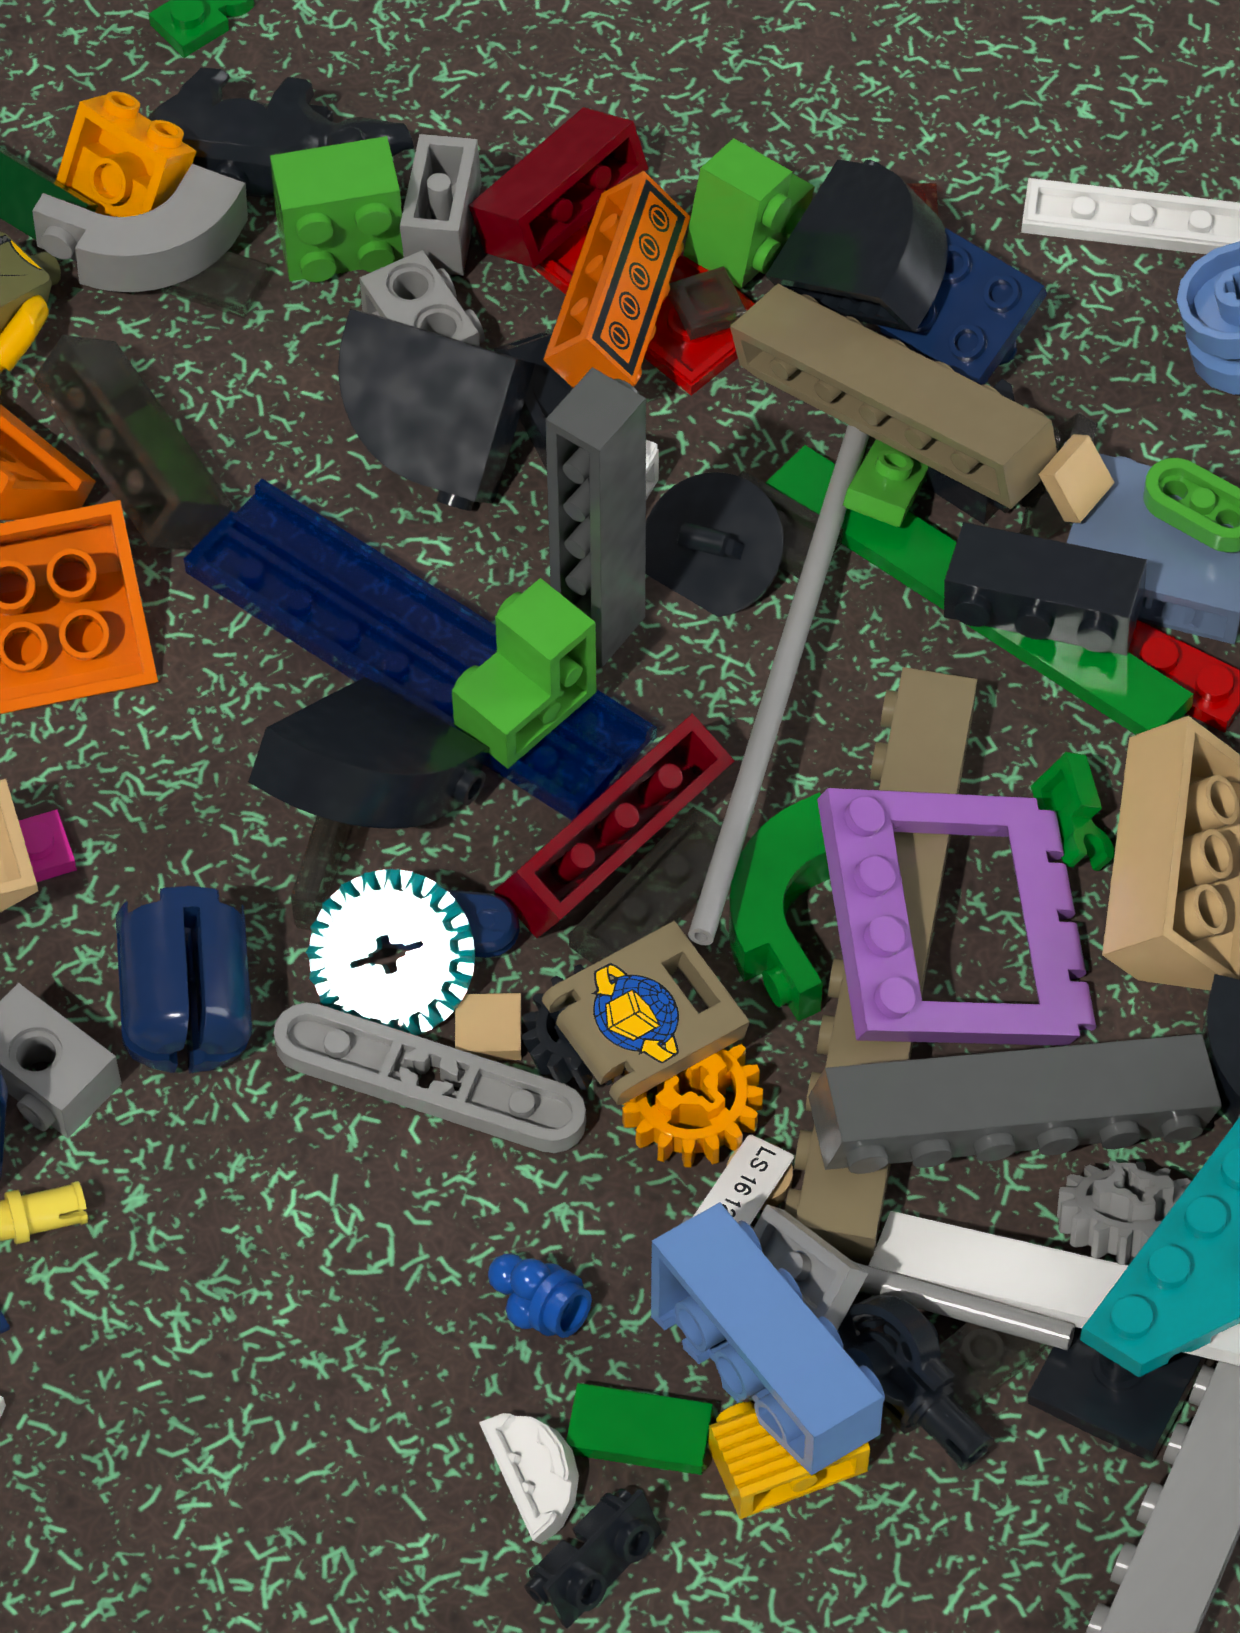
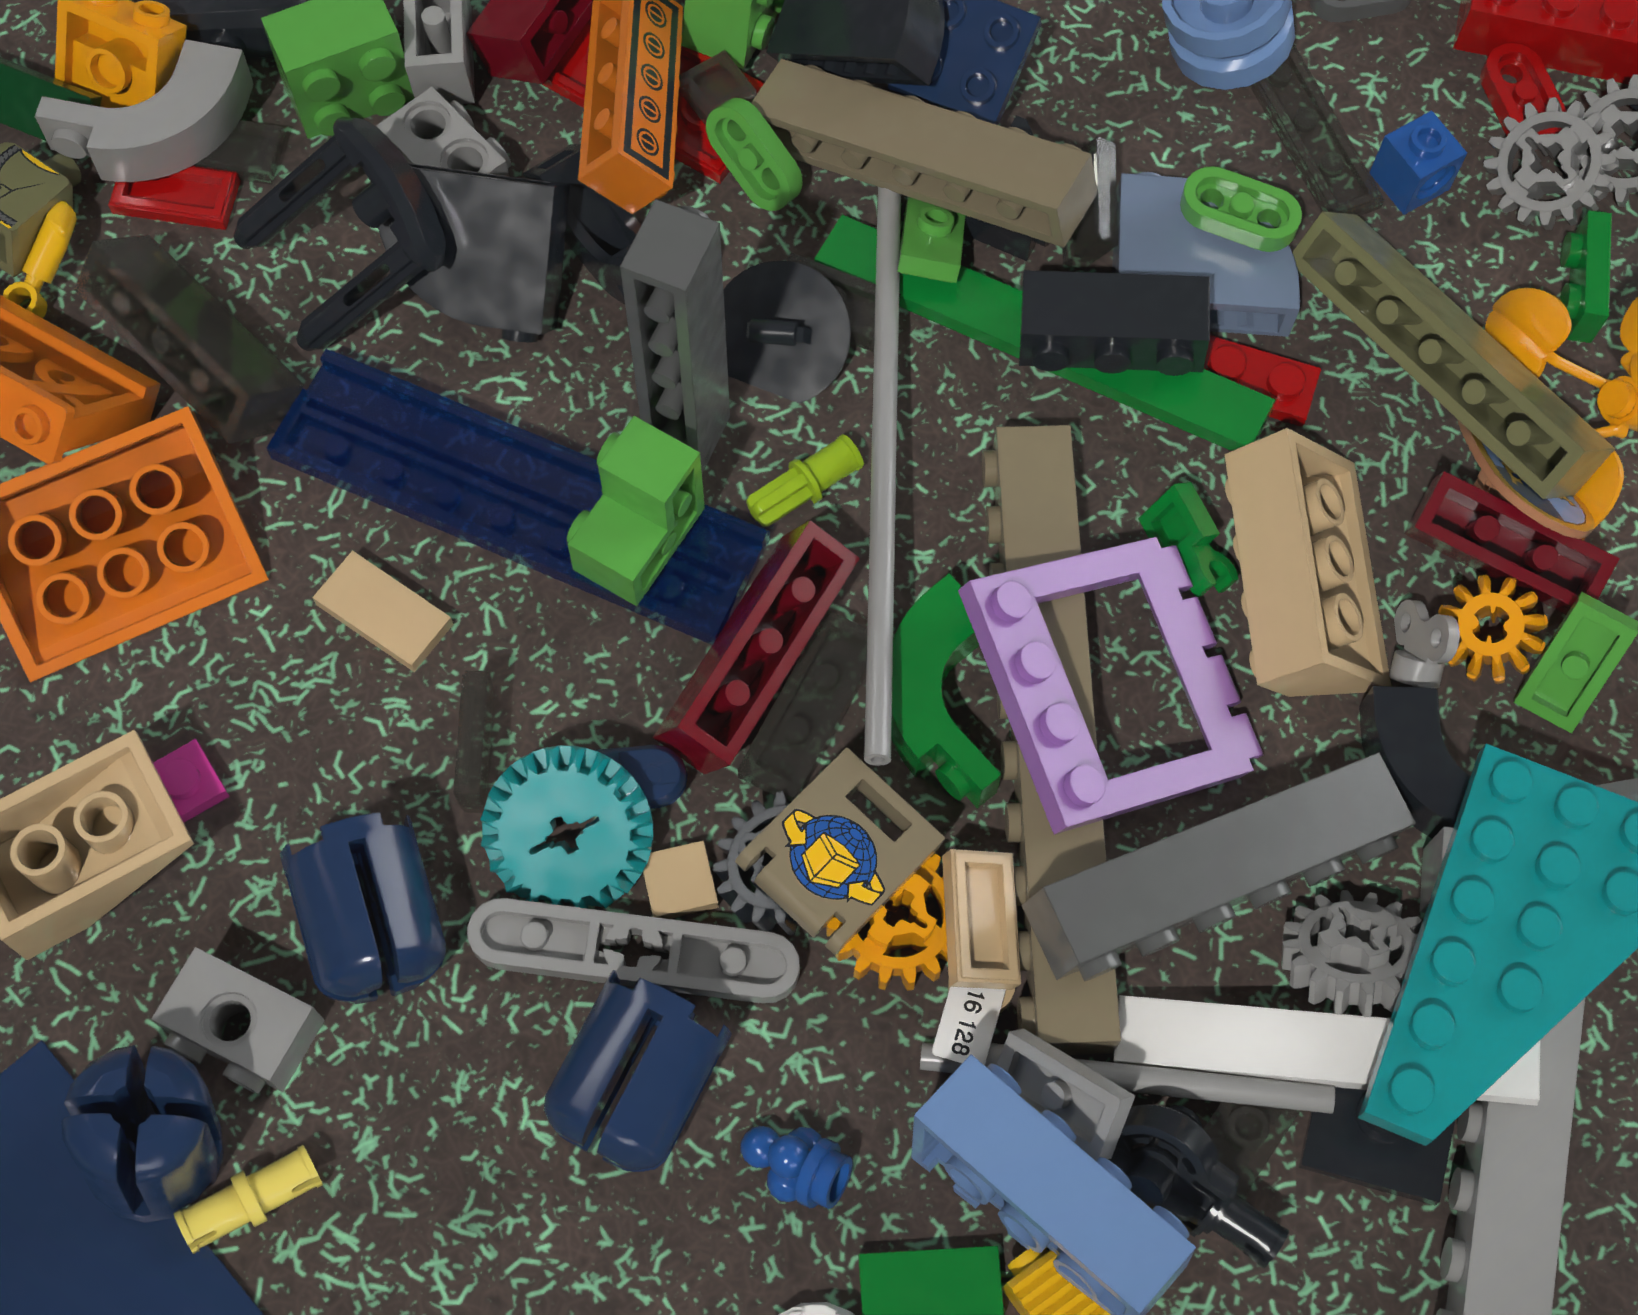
camera: 15 degrees left, 10 degrees up
(158, 315) = (188, 197): none -> red tile
(241, 713) = (383, 611): none -> tan tile
(360, 339) = (392, 193): none -> black piece
(369, 760) = (499, 632): black brick -> none
(402, 1173) = (633, 1072): none -> dark blue cylinder
(703, 688) = (804, 481): none -> lime axle
(728, 370) = (754, 154): none -> bright green plate
(769, 1108) = (981, 919): none -> tan tile
(1076, 478) = (1118, 204): tan tile -> none

